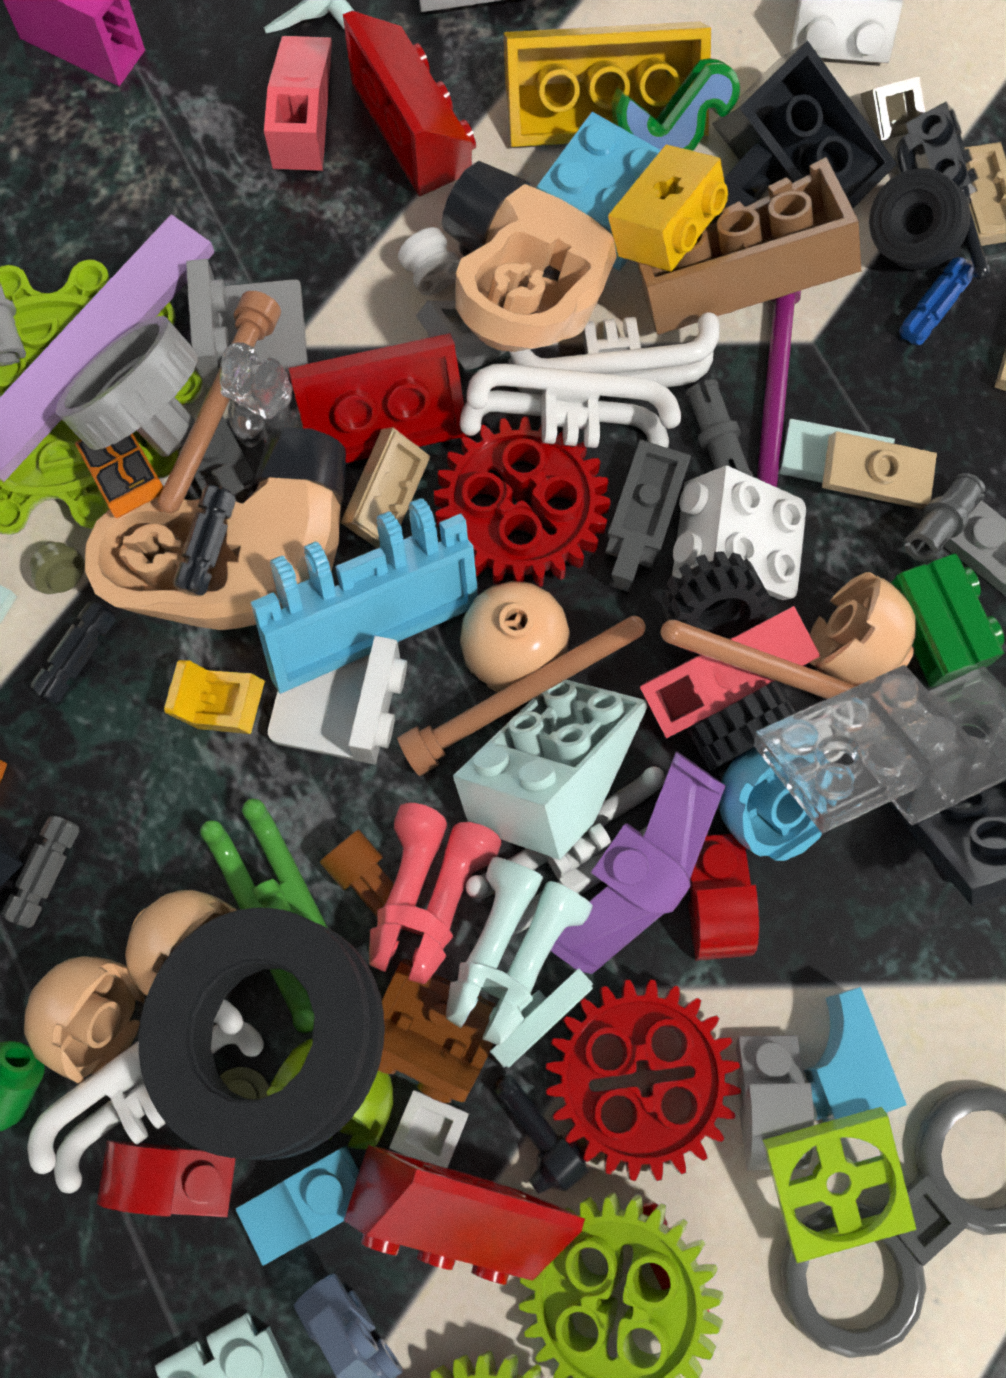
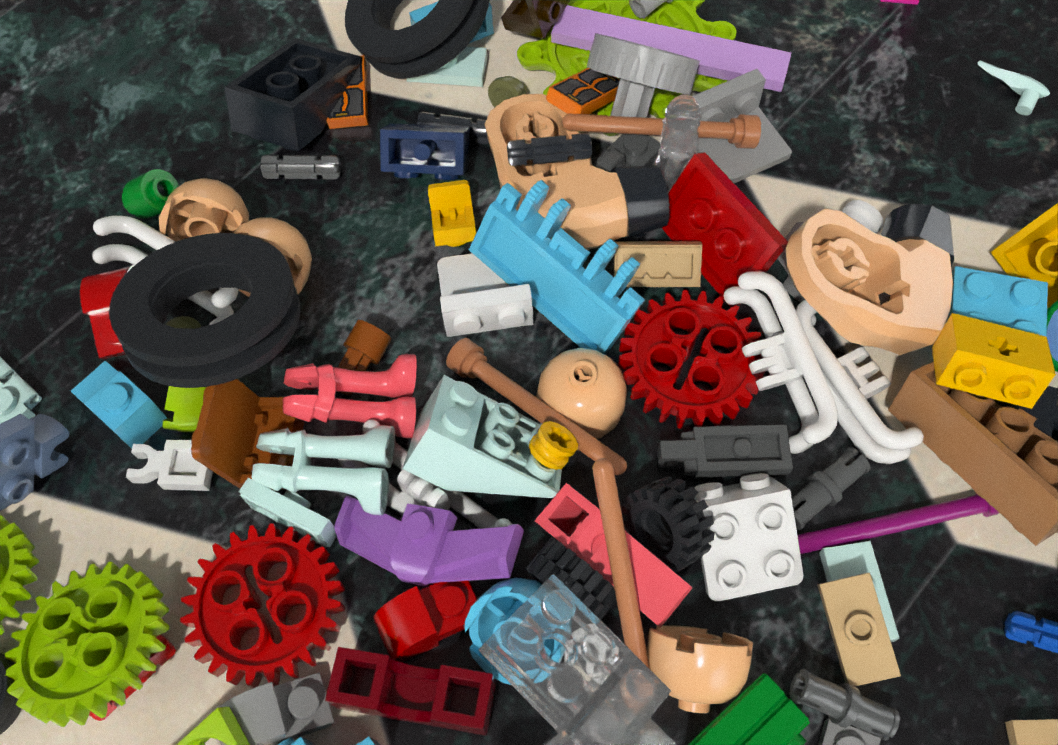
camera: 75 degrees right, 10 degrees down
(103, 696) = (425, 149): none -> dark blue brick
(290, 895) = (321, 316): bright green piece -> none
(298, 103) = (930, 96): coral slope -> none
(407, 103) = (978, 158): red slope -> none
(456, 1218) = (119, 492): red slope -> none
(558, 1162) = (183, 562): black piece -> none
(588, 684) = (553, 445): none -> yellow bush
(808, 917) = (404, 692): none -> dark red arch

